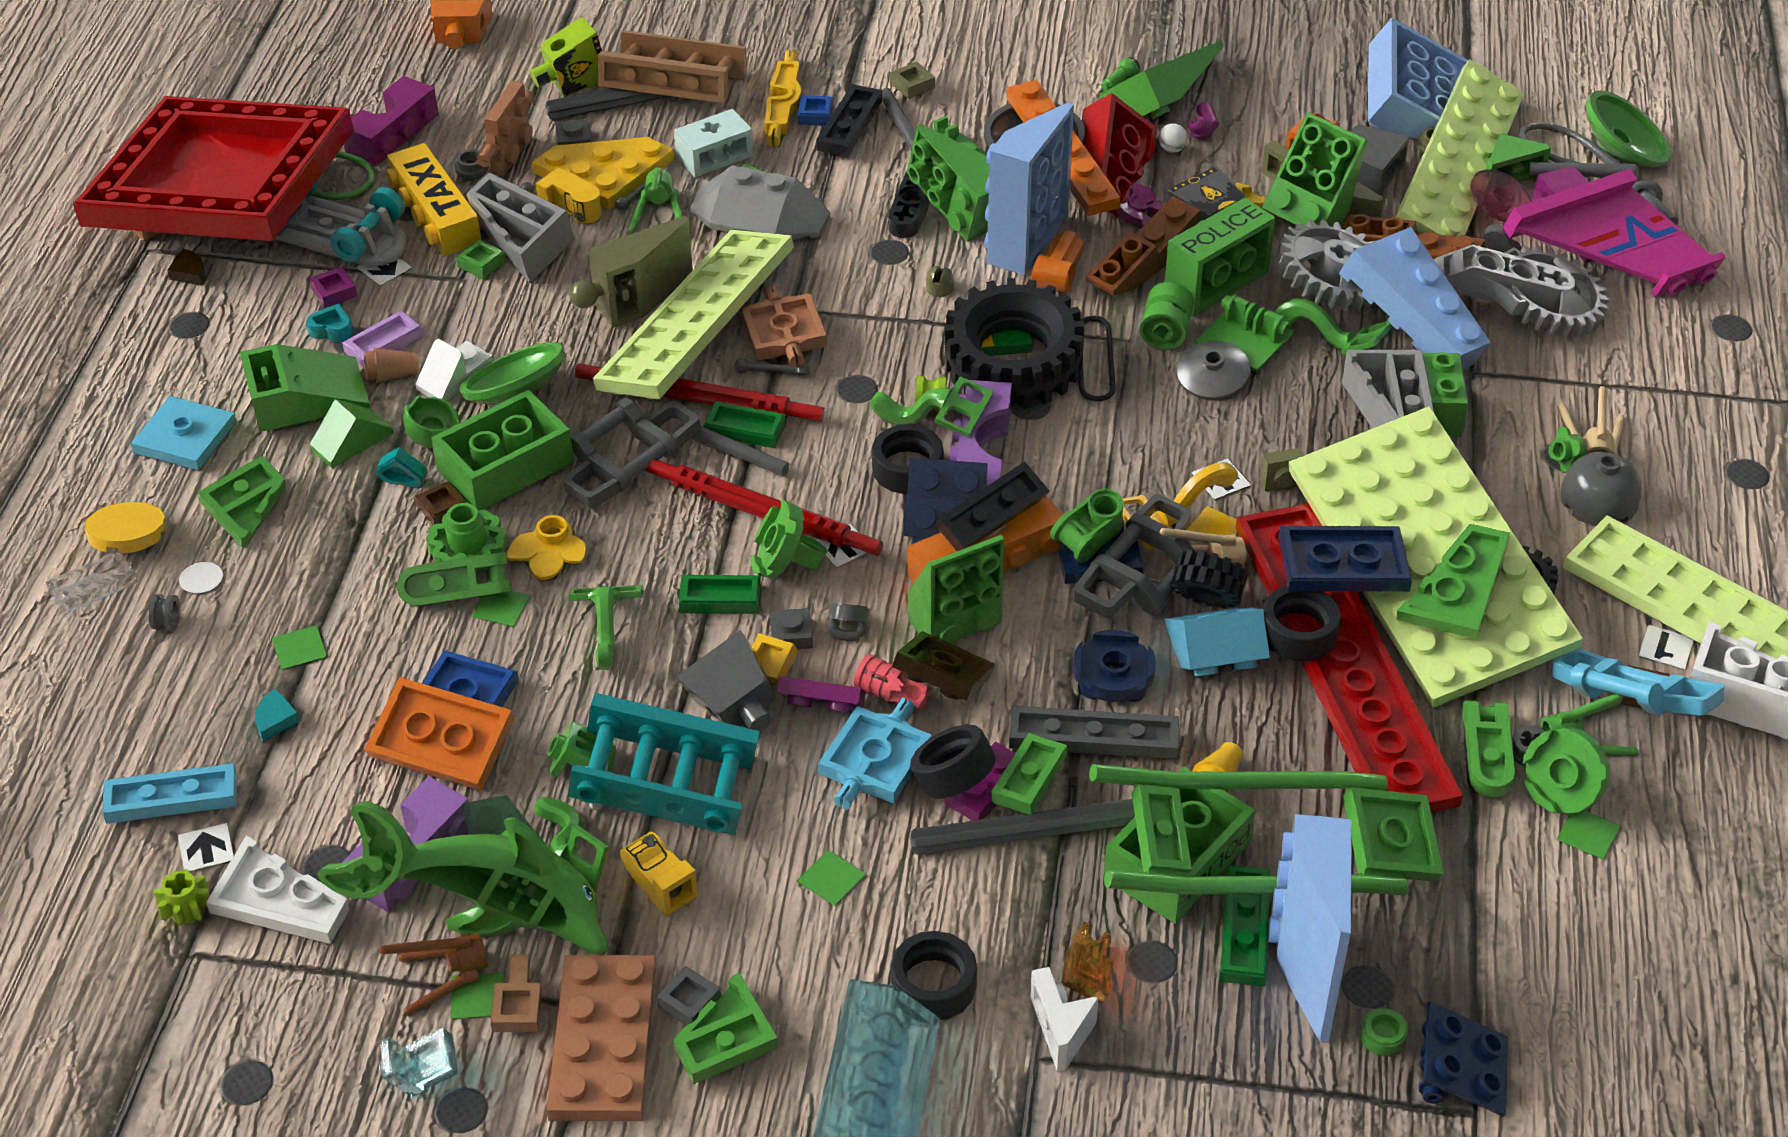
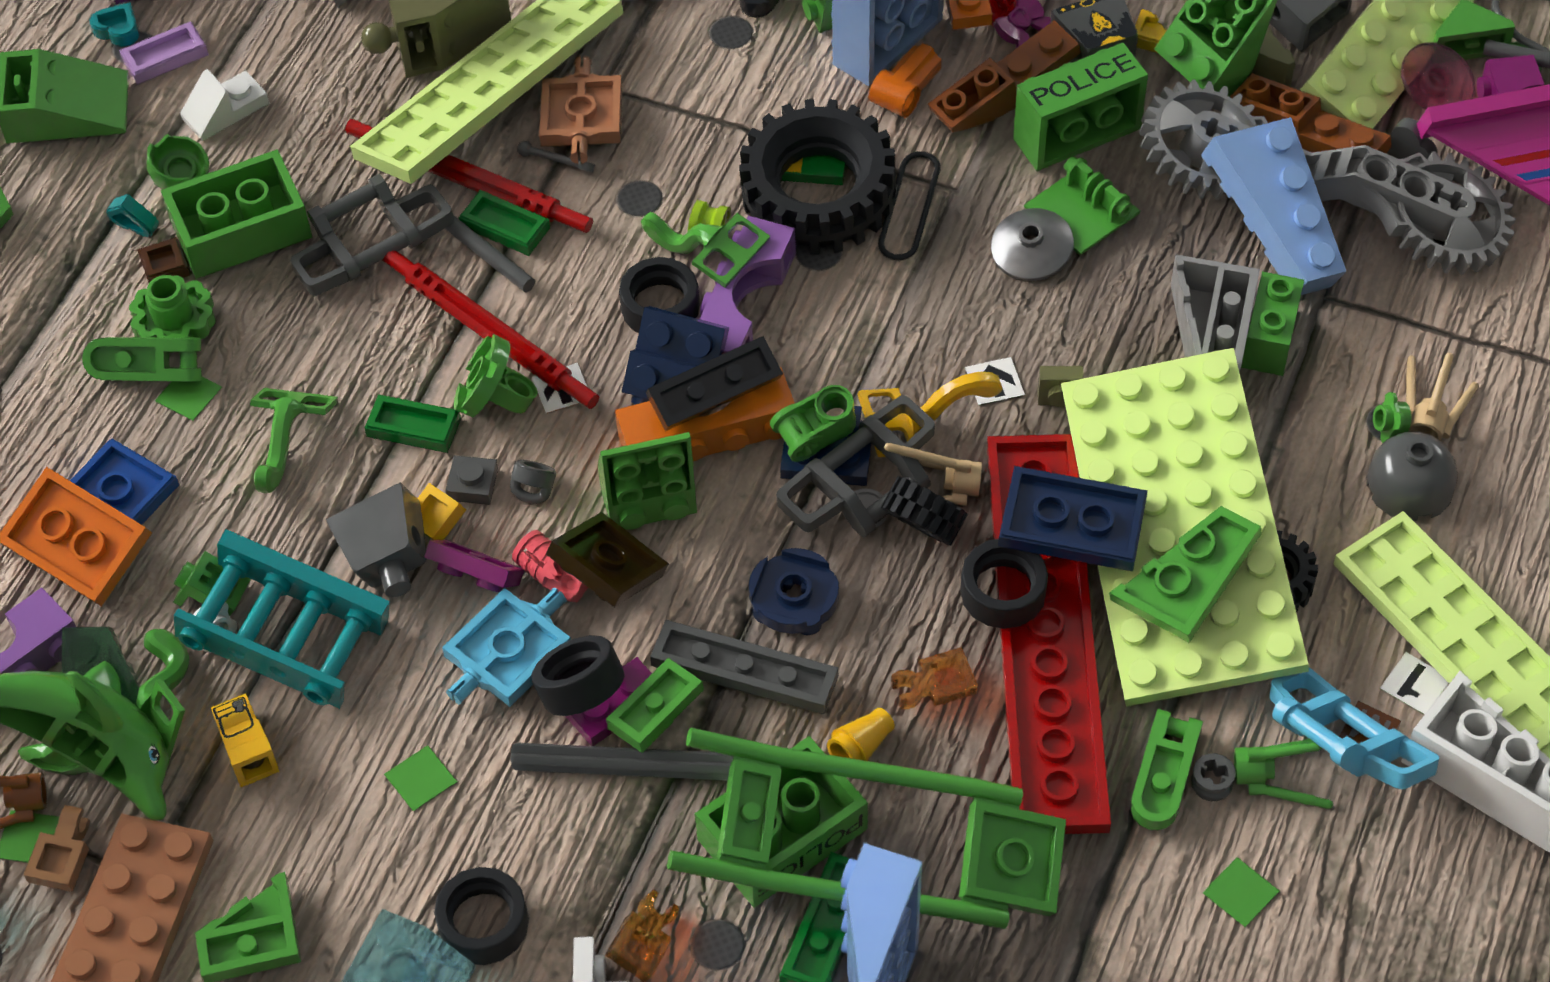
camera: 15 degrees right, 10 degrees up
(347, 432) = (94, 159): bright green slope -> none
(389, 365) = (158, 86): nougat cone -> none
(514, 374) = (276, 124): bright green dish -> none
(548, 547) = (250, 338): yellow plate -> none
(687, 995) = (227, 885): dark grey plate -> none
(946, 280) = (776, 83): olive hinge -> none
(1166, 316) = (999, 170): bright green wheel -> none
(1214, 522) = (965, 438): yellow sticker -> none
(1219, 639) = (914, 581): medium azure slope -> none
(1268, 709) = (940, 676): none -> clear orange plate
(1364, 338) = (1195, 235): bright green piece -> none
(1566, 770) = (1232, 820): bright green tile -> none

